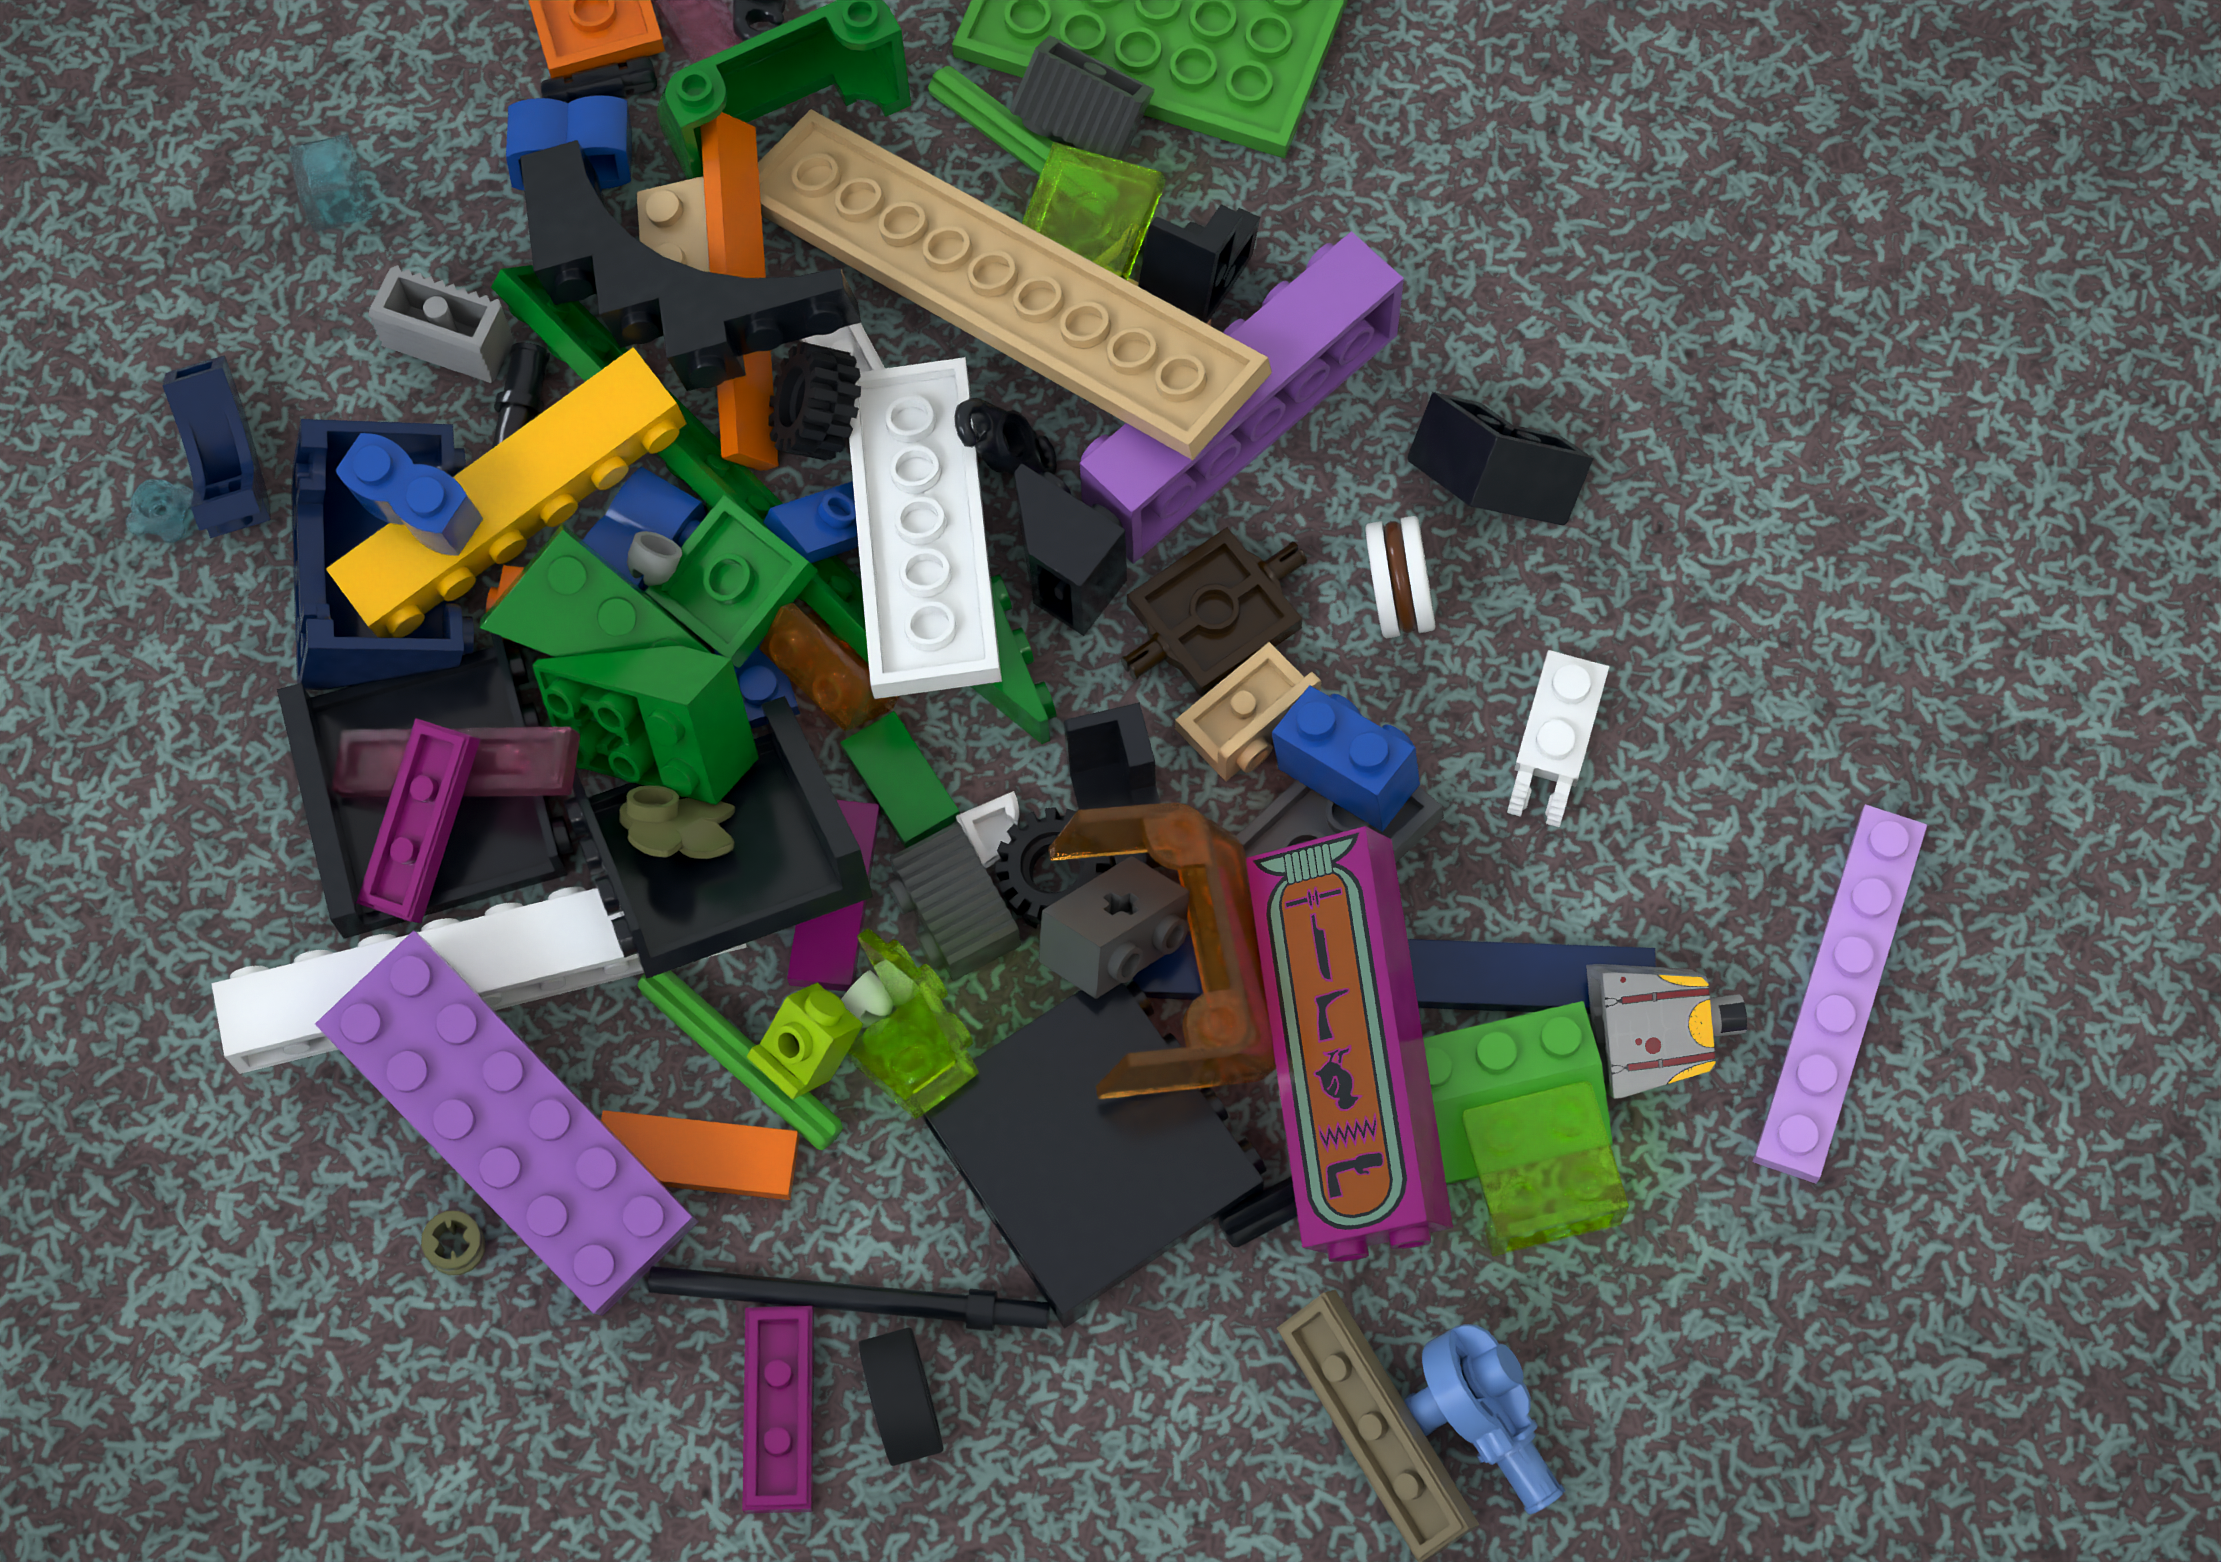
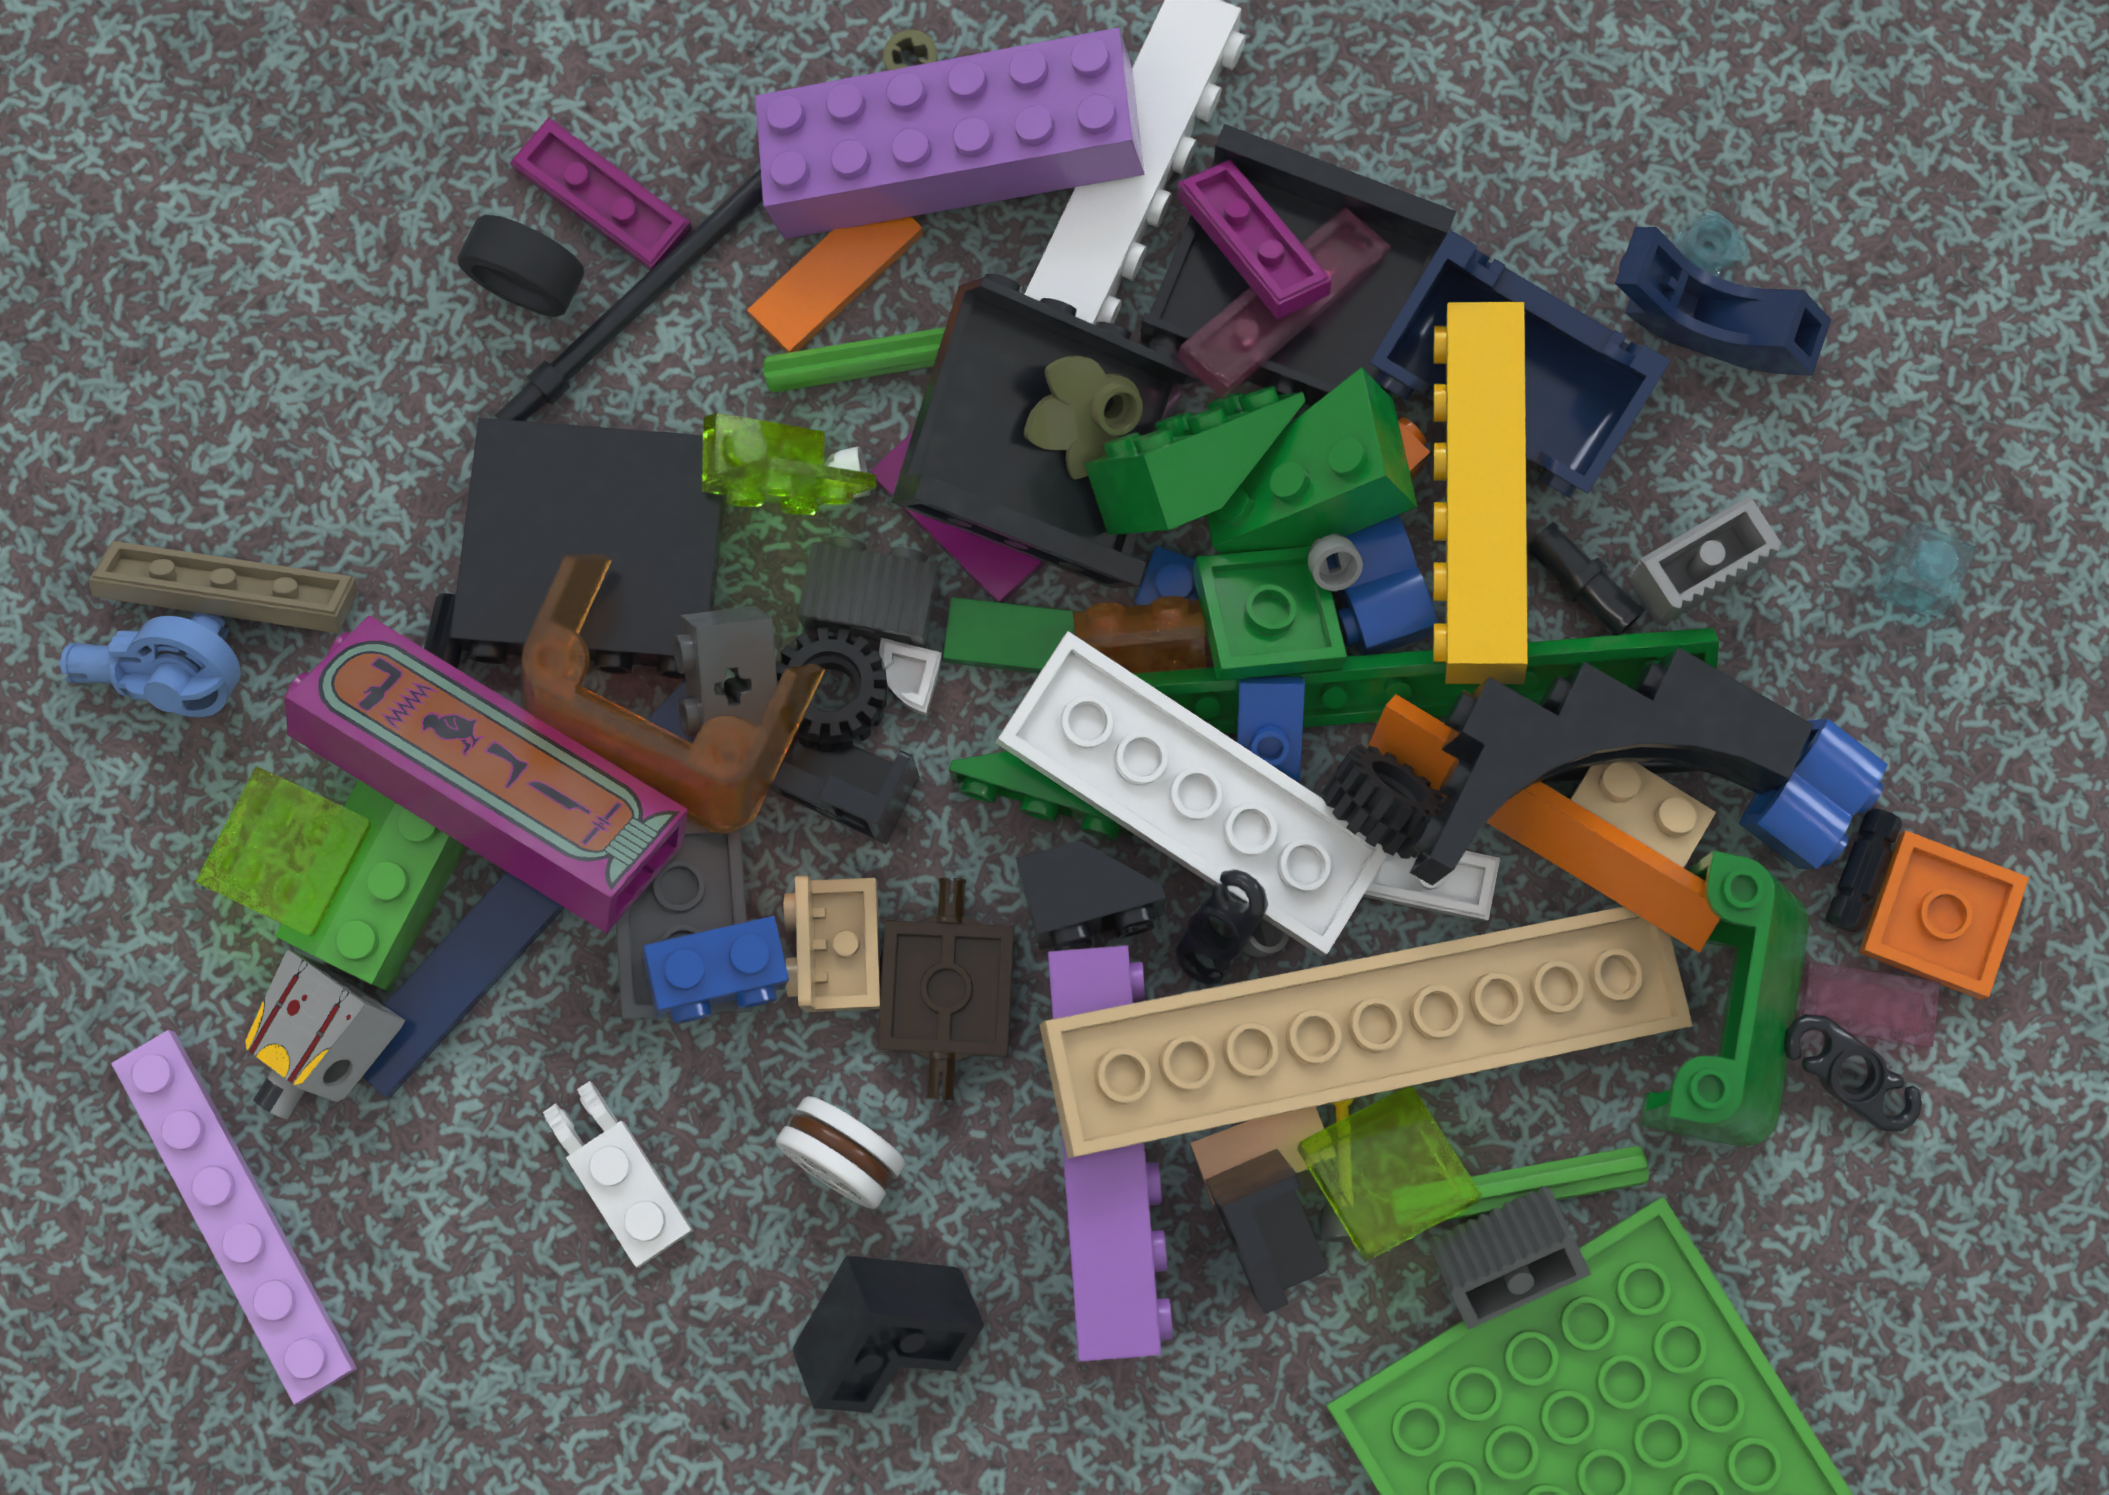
camera: 130 degrees right, 10 degrees up
(409, 494) = (1535, 386): blue brick -> none
(806, 1040) = (844, 397): lime brick -> none

